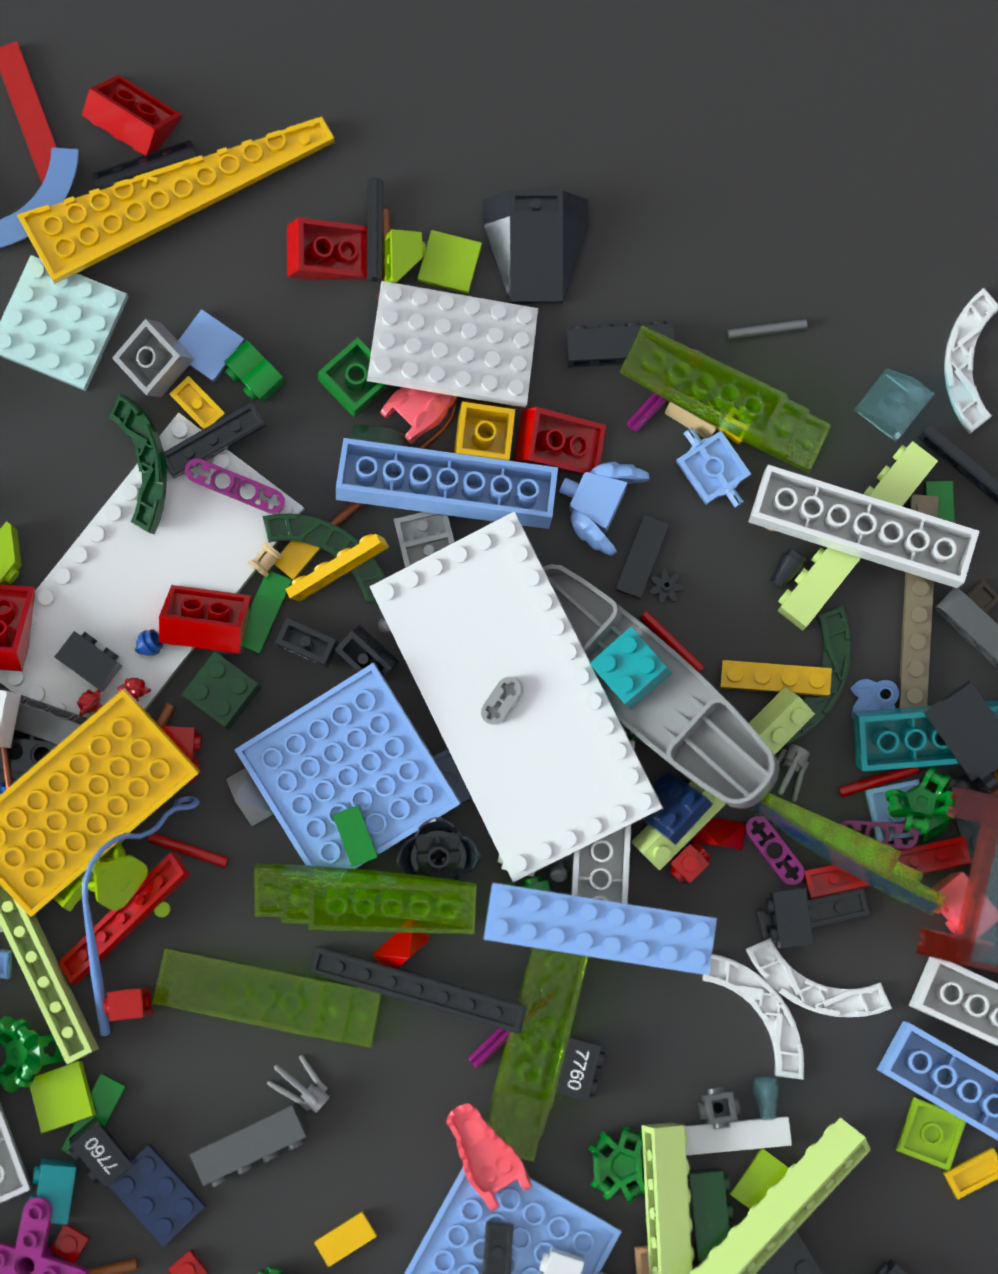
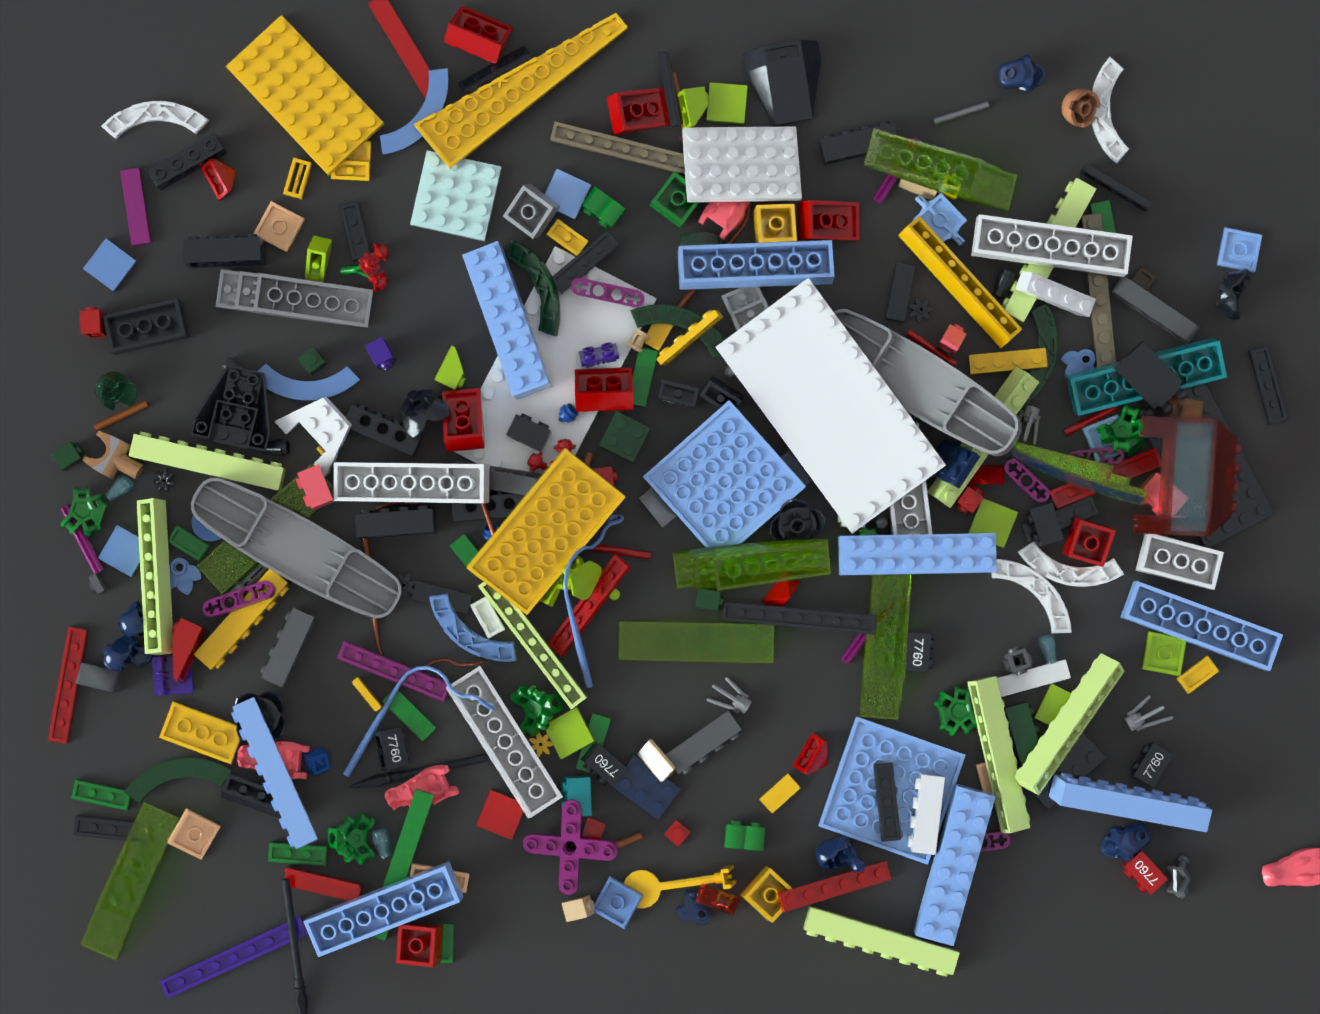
camera: 10 degrees left, 5 degrees up
(25, 1105) = (541, 740): none -> yellow plant
(89, 501) = (507, 320): none -> light blue brick
(128, 1003) = (603, 662): red brick -> none
(176, 1160) = (656, 760): none -> slope
(195, 567) = (590, 355): none -> dark purple hinge
(289, 294) = (618, 147): none -> dark tan plate
(295, 940) = (708, 599): none -> dark green brick
(355, 835) = (737, 521): green tile -> none
(402, 1193) = (813, 756): none -> red slope
(486, 1157) = (866, 720): coral animal -> none
(496, 697) = (819, 407): light grey beam -> none
(598, 499) = (863, 256): light blue torso -> none
(630, 668) = (908, 372): teal brick -> none
(702, 633) = (952, 339): none -> coral slope
(718, 897) = (993, 519): none -> lime tile
(727, 556) = (960, 282): none -> yellow brick
(849, 953) = (1088, 541): none -> red brick
(857, 595) = (1055, 294): none -> white brick
(858, 290) = (1021, 74): none -> dark blue head
(876, 1227) = (1136, 721): none -> light grey plant
(893, 402) = (1059, 151): clear light blue slope -> none
(933, 346) = (1080, 107): none -> nougat cylinder

